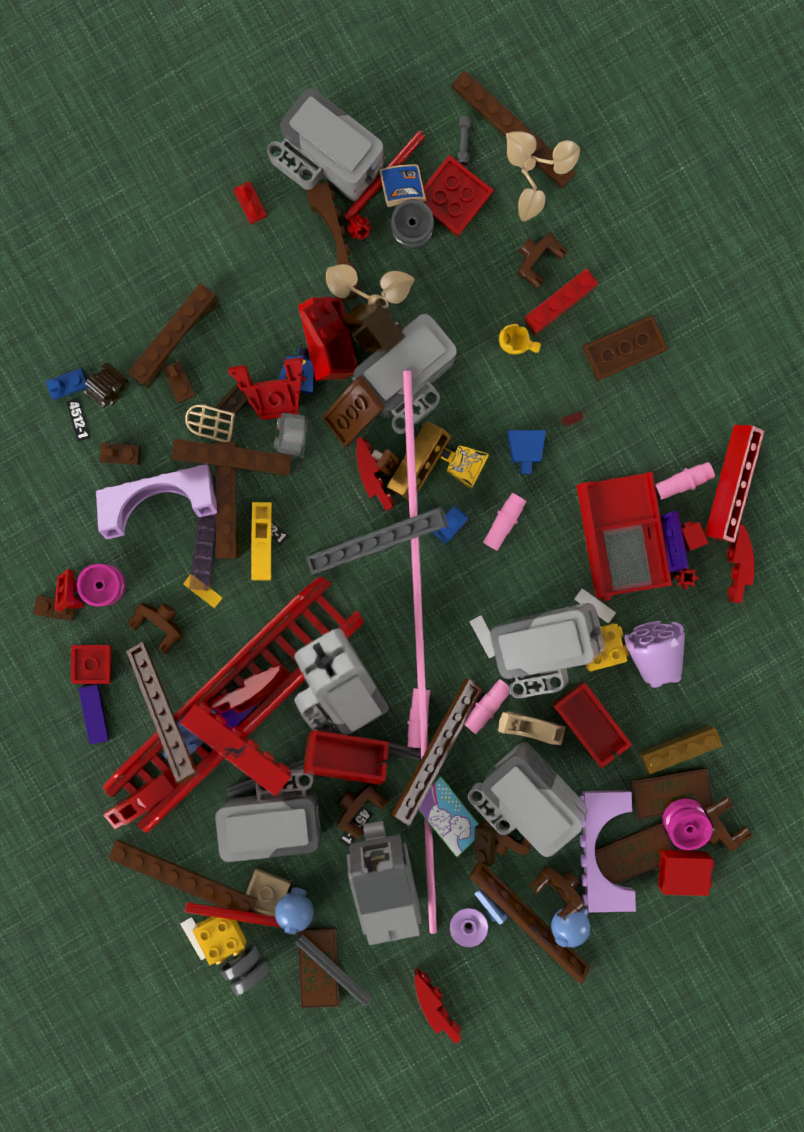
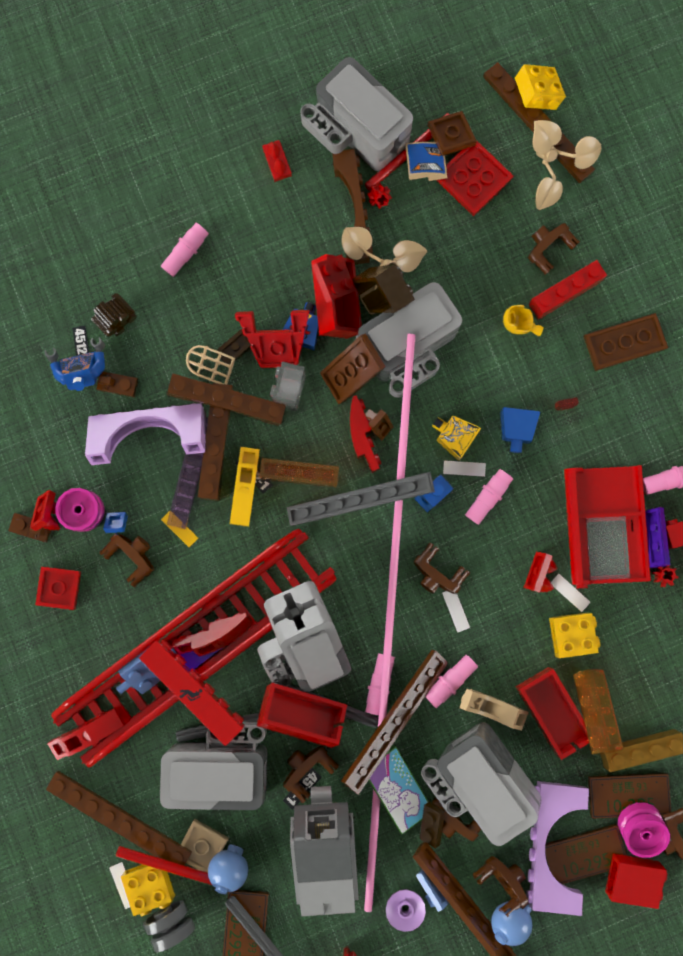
camera: 10 degrees right, 5 degrees down
(67, 384) = (75, 310): blue hinge -> none
(80, 445) = (80, 369): none -> blue torso
(94, 714) = (53, 639): dark purple tile -> none
(138, 592) = (115, 522): none -> blue plate
(162, 713) = (122, 647): plate -> none
(168, 306) = (184, 249): none -> bright pink piece
(179, 382) = (185, 321): reddish brown hinge -> none
(189, 314) = (213, 250): reddish brown arch -> none
(313, 521) = (299, 472): none -> clear orange brick
(413, 213) = (431, 198): dark grey wheel -> none
(425, 152) = (452, 133): none -> reddish brown tile
(428, 448) = (423, 413): pearl gold brick -> none
(459, 608) = (433, 578): none -> reddish brown connector
(464, 126) = (492, 113): dark grey bar -> none
(477, 496) = (464, 468): none -> white sticker
(510, 93) = (540, 87): none -> yellow brick
(546, 646) = (519, 626): light grey piece -> none
(560, 595) = (536, 577): none -> red tile
(632, 718) = (598, 711): none -> clear orange brick
(657, 651) = (630, 646): lavender cone -> none

